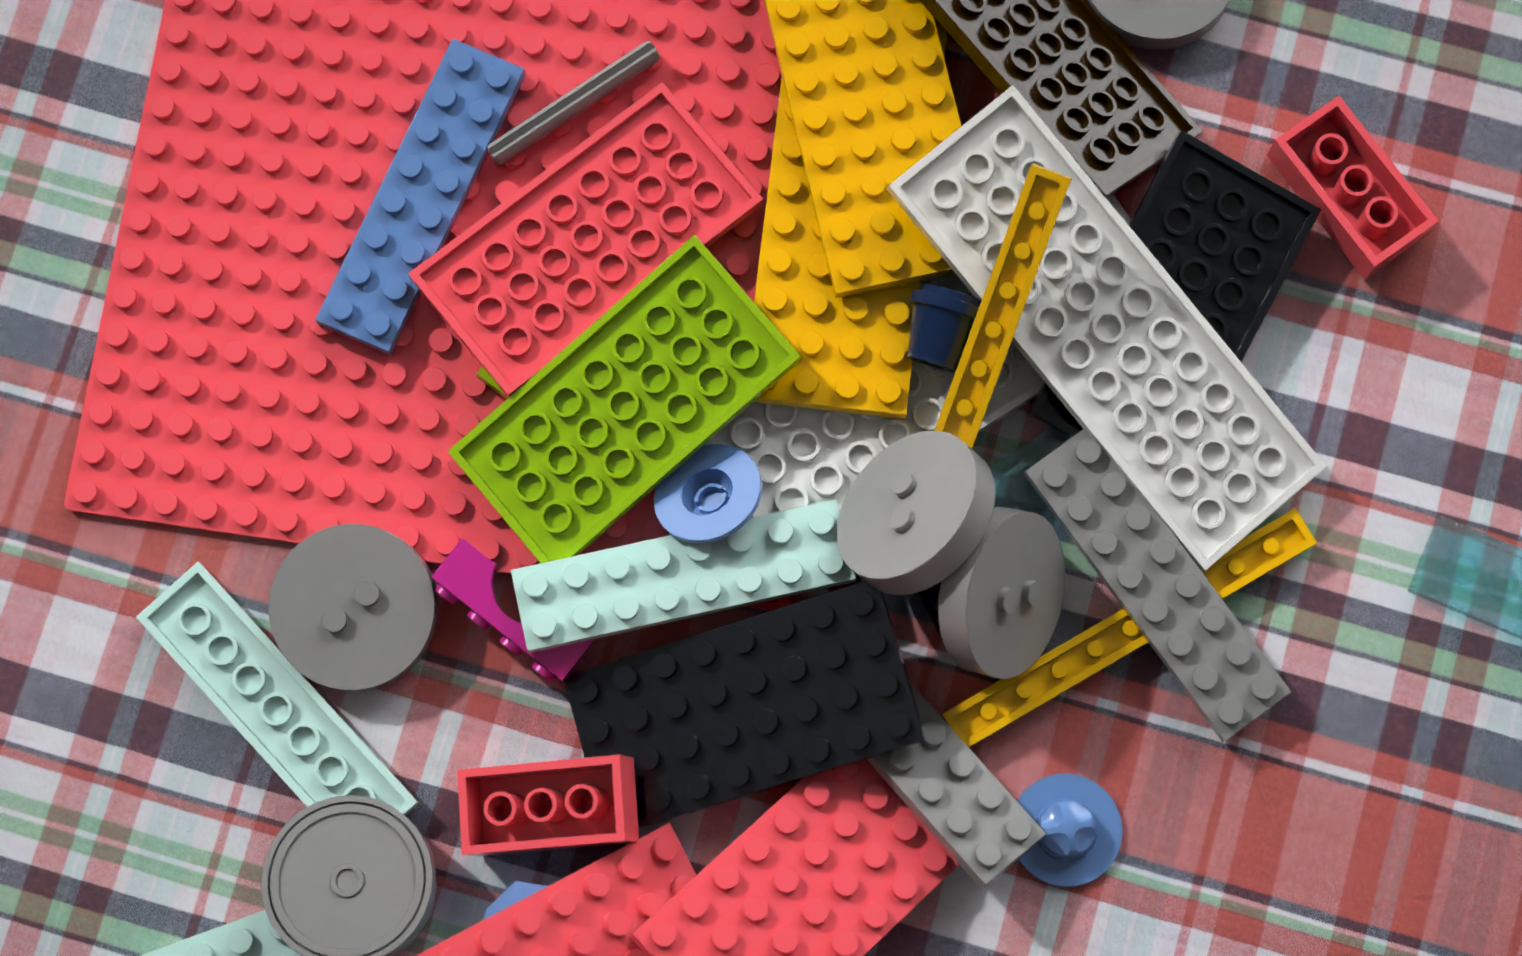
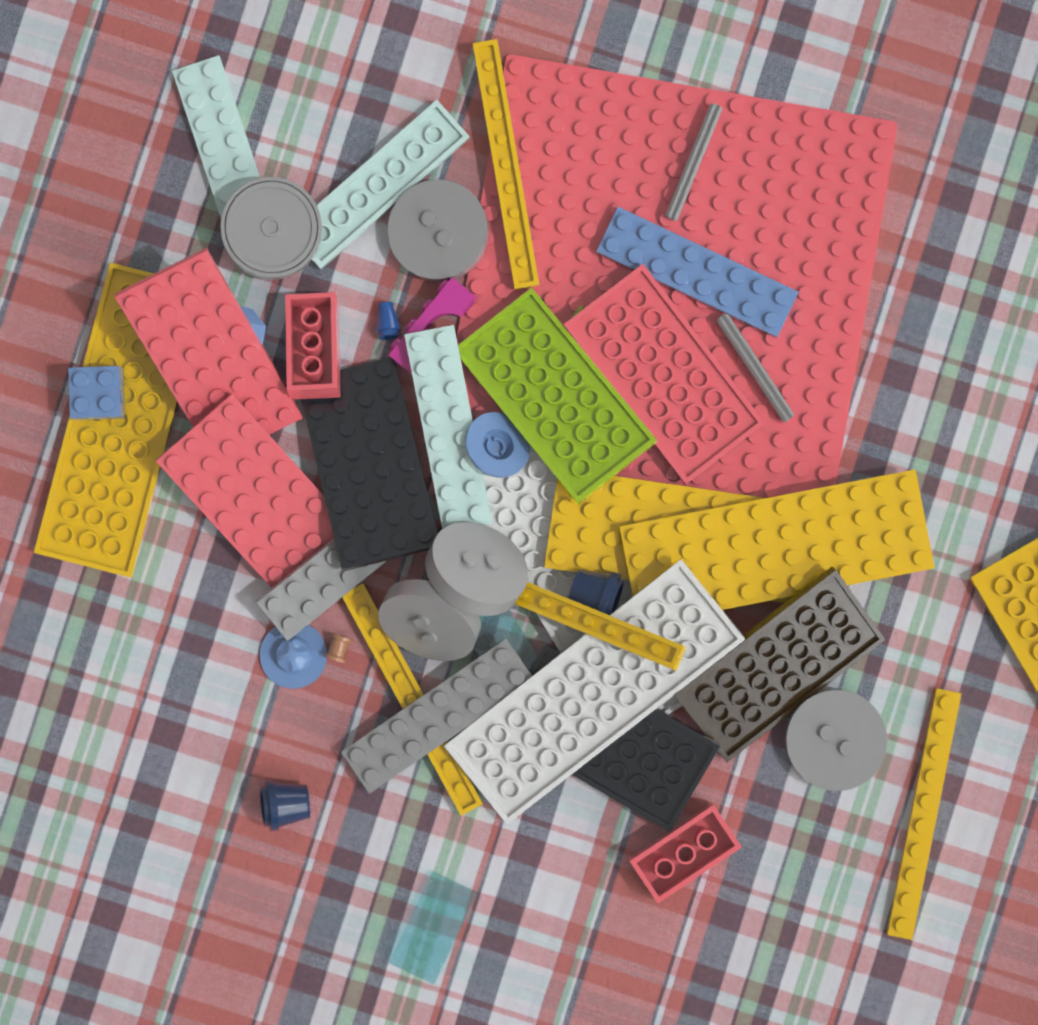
camera: 85 degrees right, 10 degrees up
(243, 499) = (506, 164): none -> yellow plate
(244, 205) = (693, 162): none -> light grey axle
(508, 687) = (387, 322): none -> blue cone
(1051, 753) = (338, 648): none -> nougat bush
(1319, 833) = (283, 804): none -> dark blue piece

